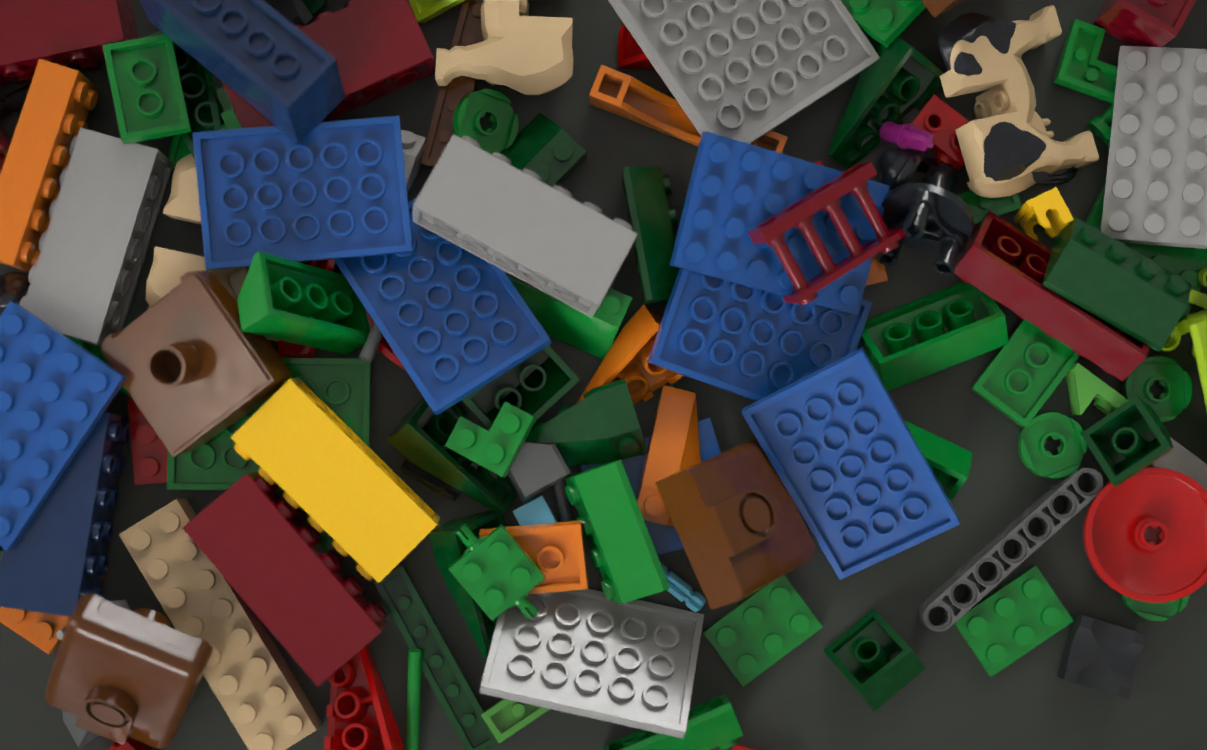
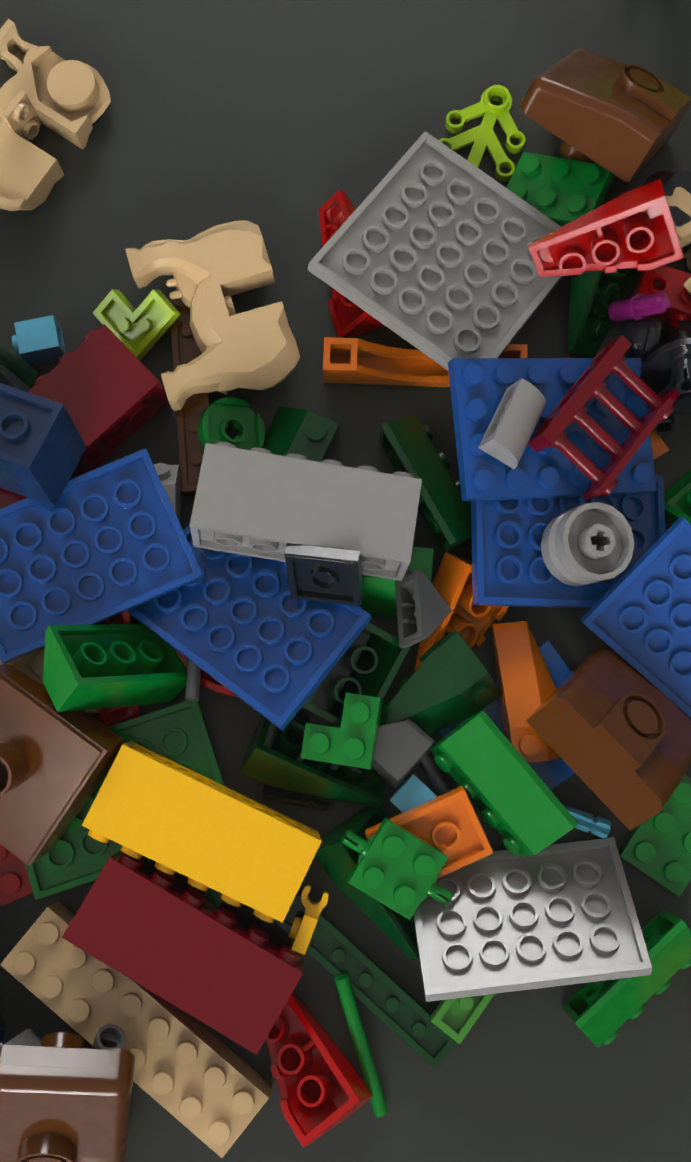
camera: 15 degrees left, 5 degrees down
(195, 627) = (109, 1036): none -> dark grey hinge
(396, 596) = (304, 927): none -> yellow plate
(520, 290) = (324, 574): none -> black plate
(597, 348) = (418, 608): none -> dark grey slope
(740, 211) = (513, 423): none -> light grey brick
(770, 343) = (587, 544): none -> light grey wheel
(909, 63) = (620, 234): none -> red wedge

